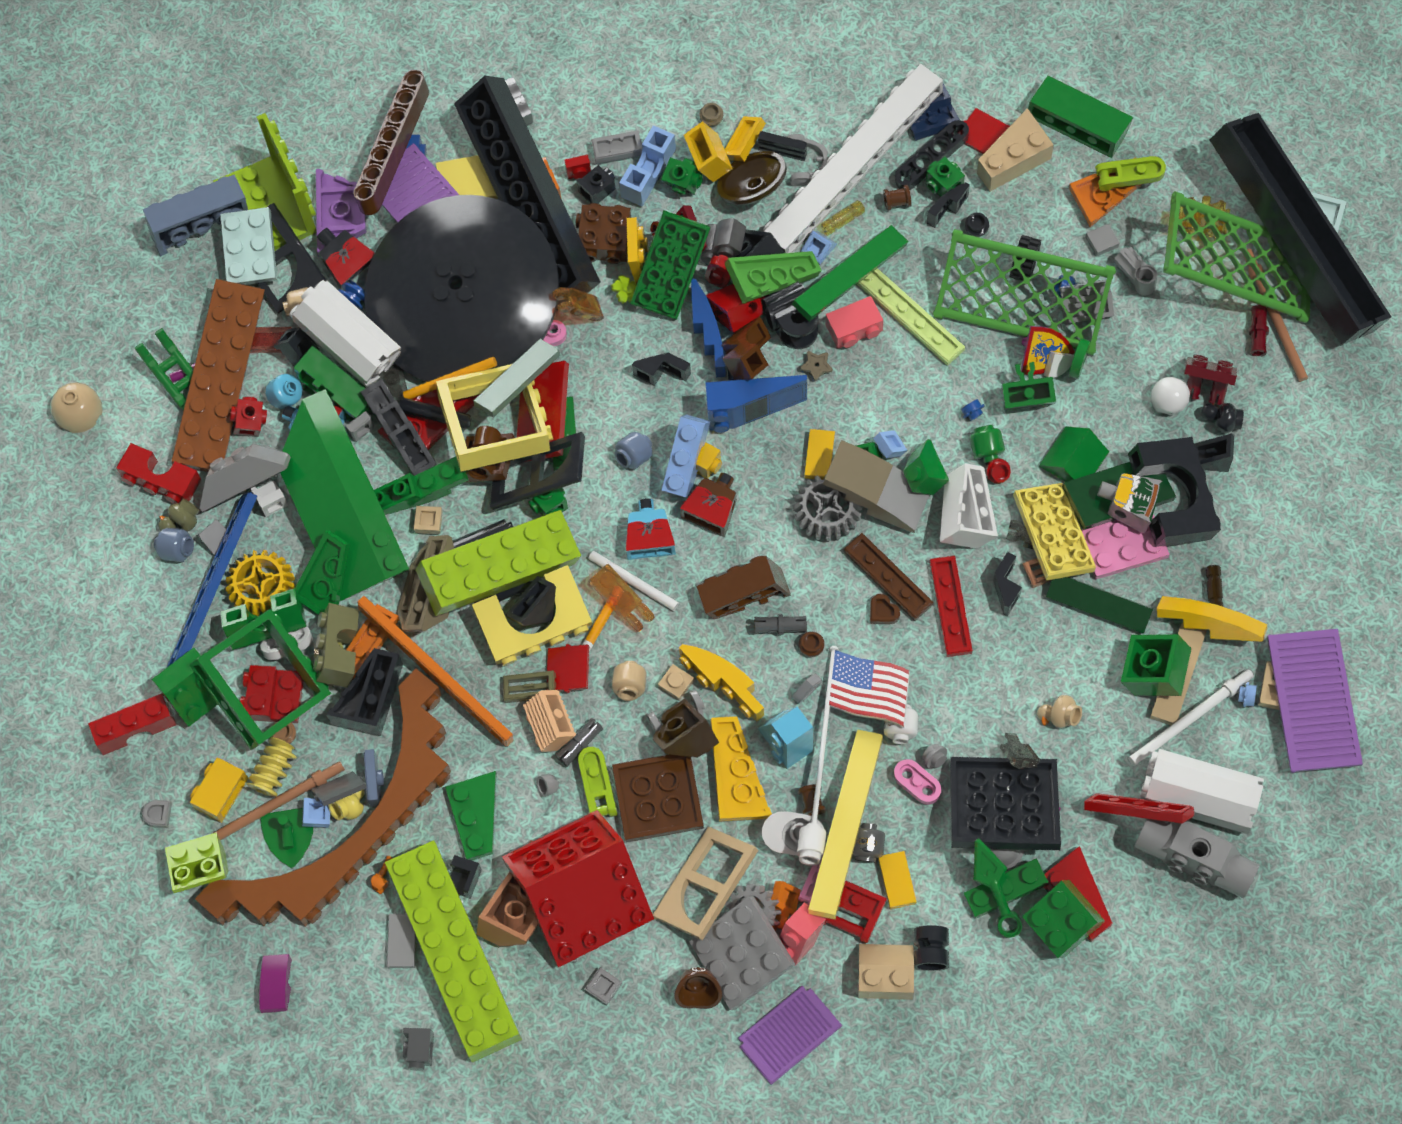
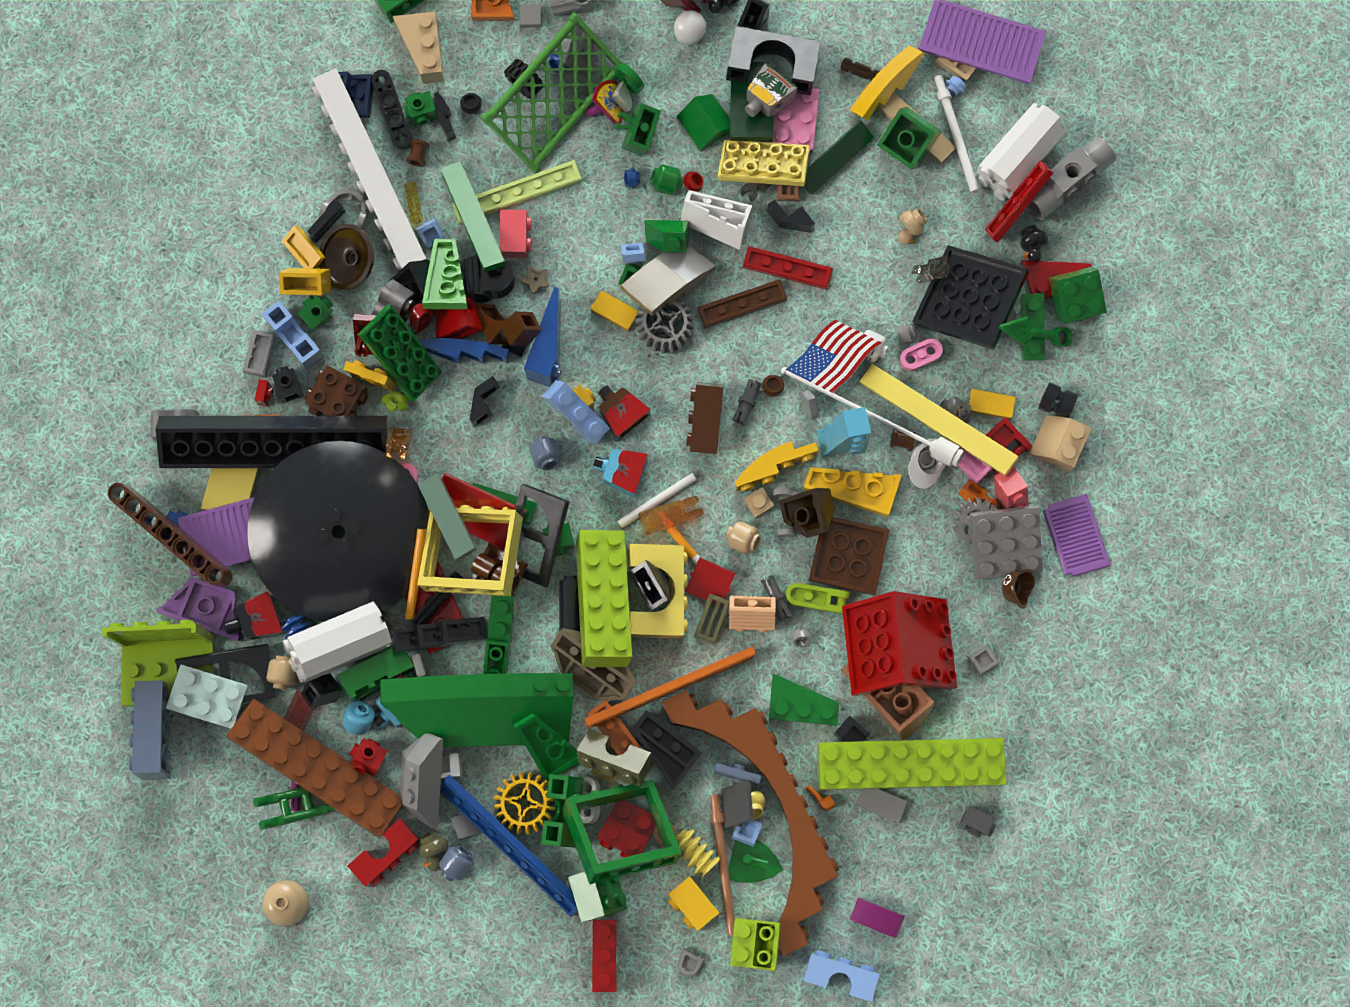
camera: 70 degrees left, 10 degrees up
(201, 993) = (821, 968): none -> light blue arch
(428, 520) = (530, 643): tan plate -> none
(672, 909) = (942, 582): tan window -> none
(711, 114) = (266, 266): dark tan plate -> none
(883, 611) = (768, 320): reddish brown tile -> none
(983, 130) = (390, 58): red piece -> none
(1105, 847) = (1031, 241): none -> black animal

